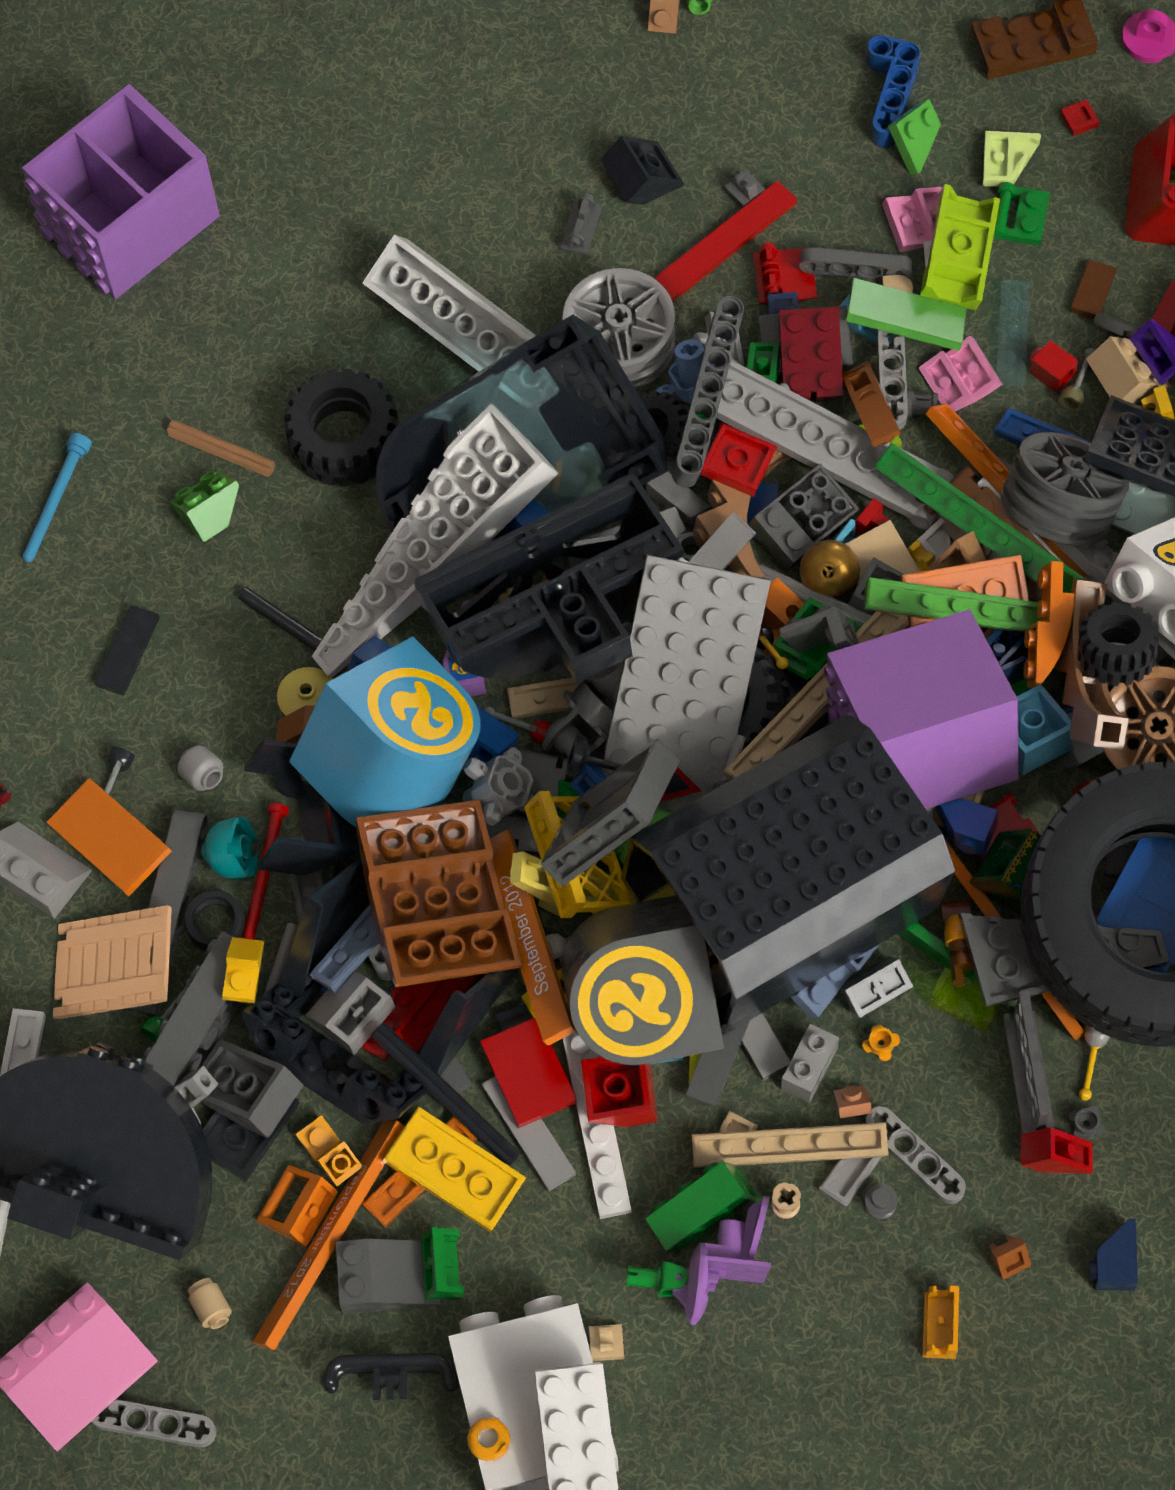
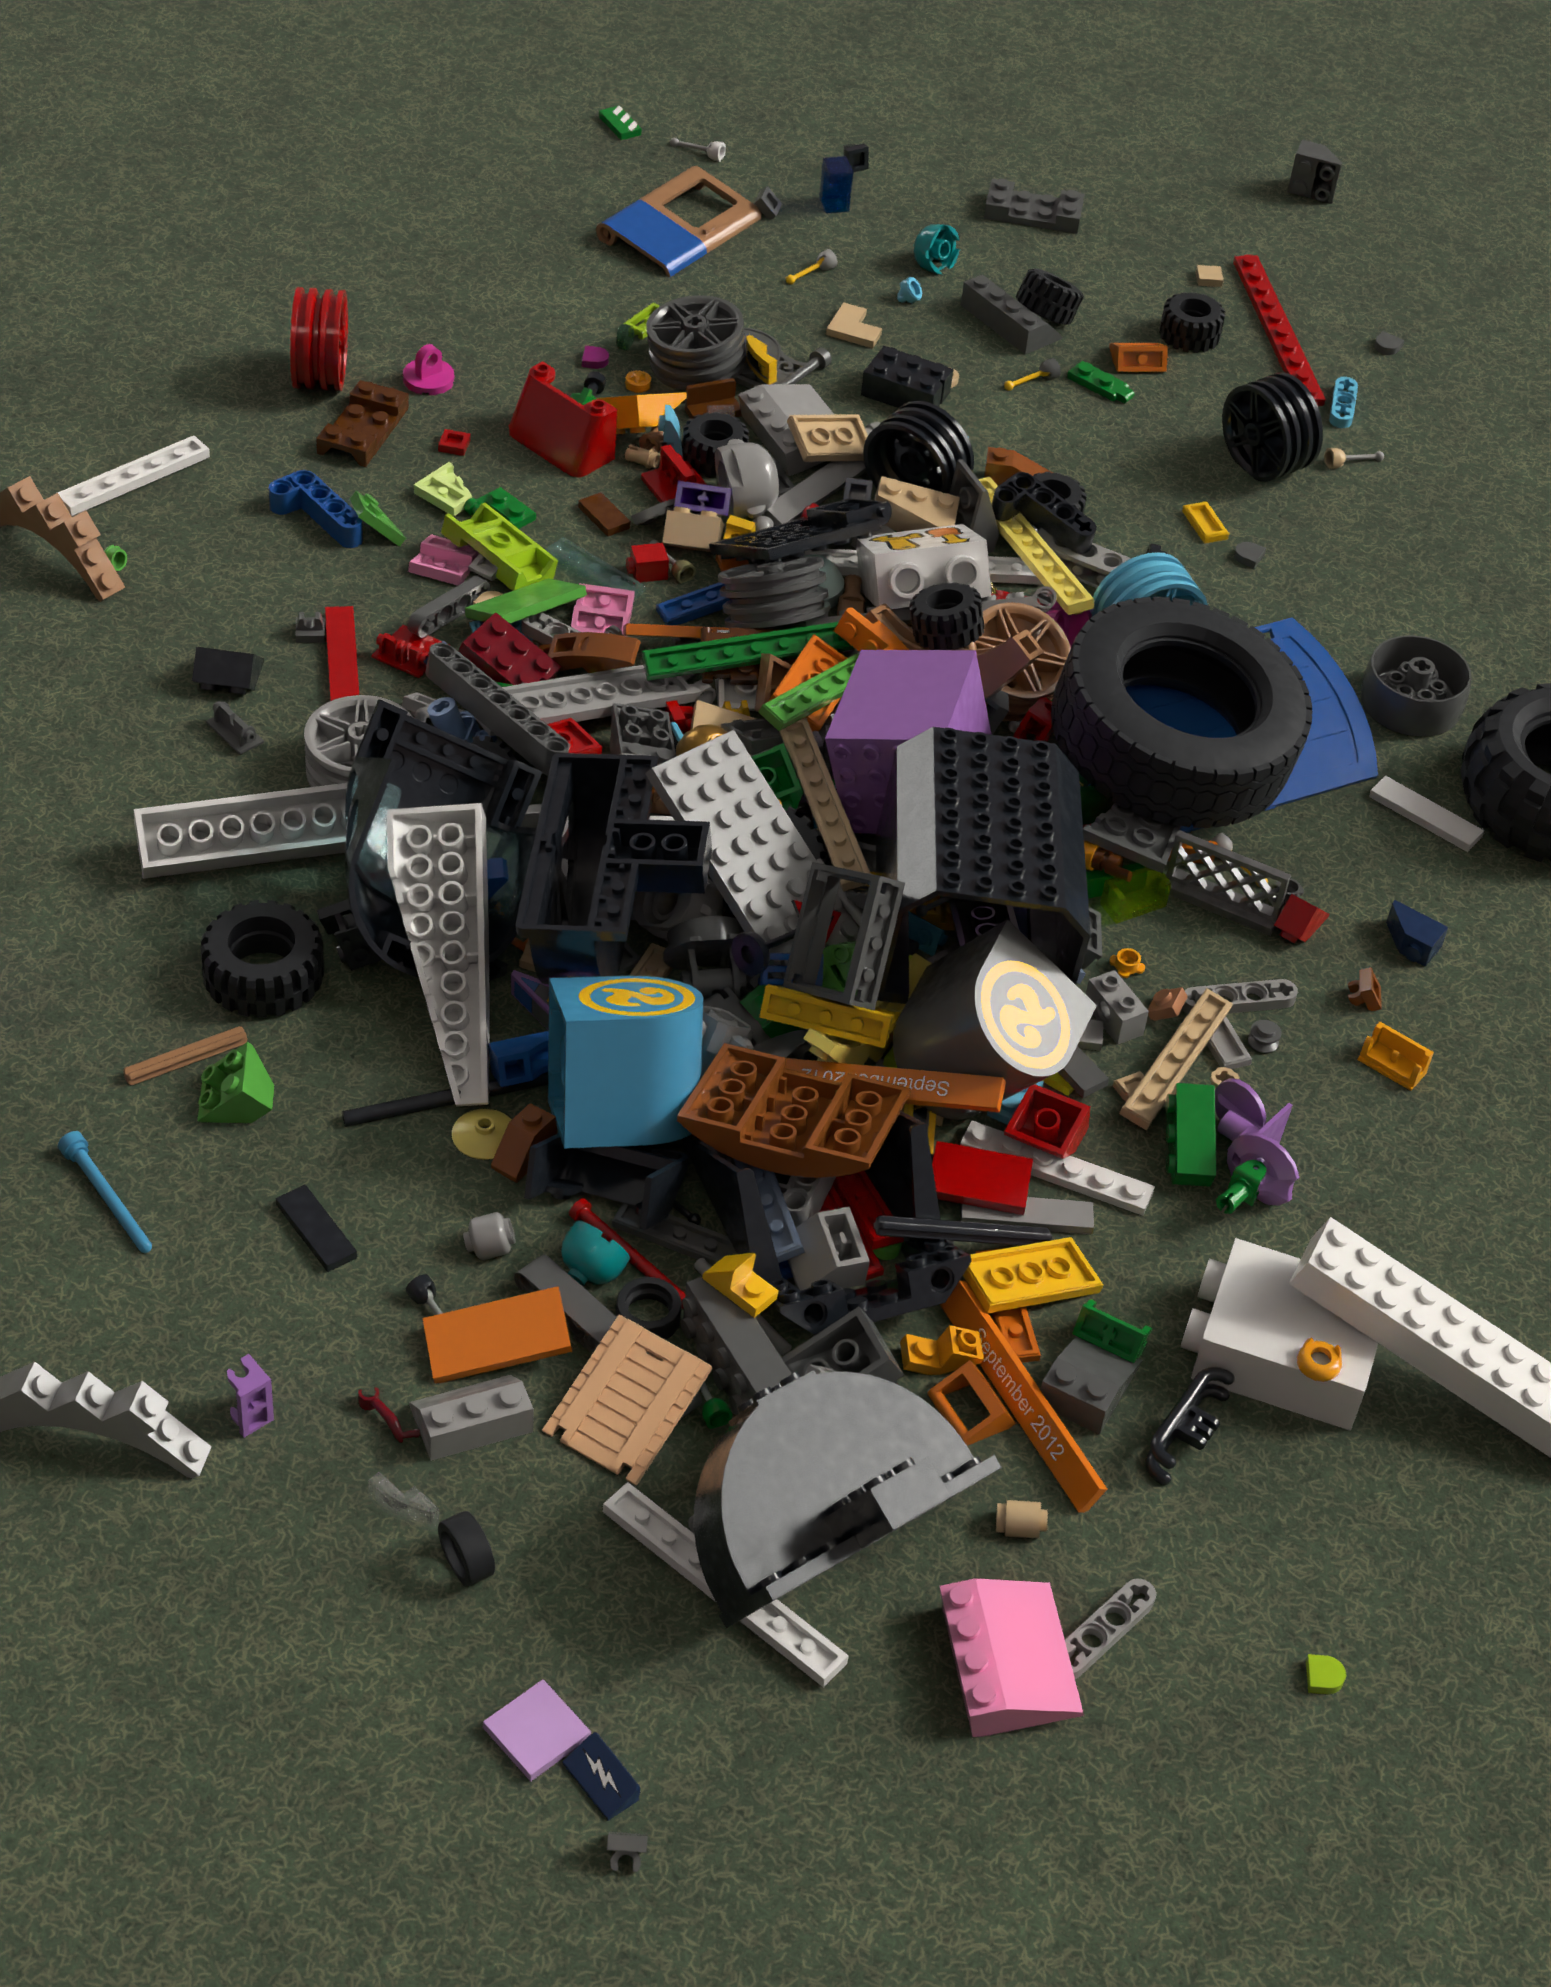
camera: 65 degrees left, 20 degrees down
(824, 626) = (794, 740): dark grey bracket -> none

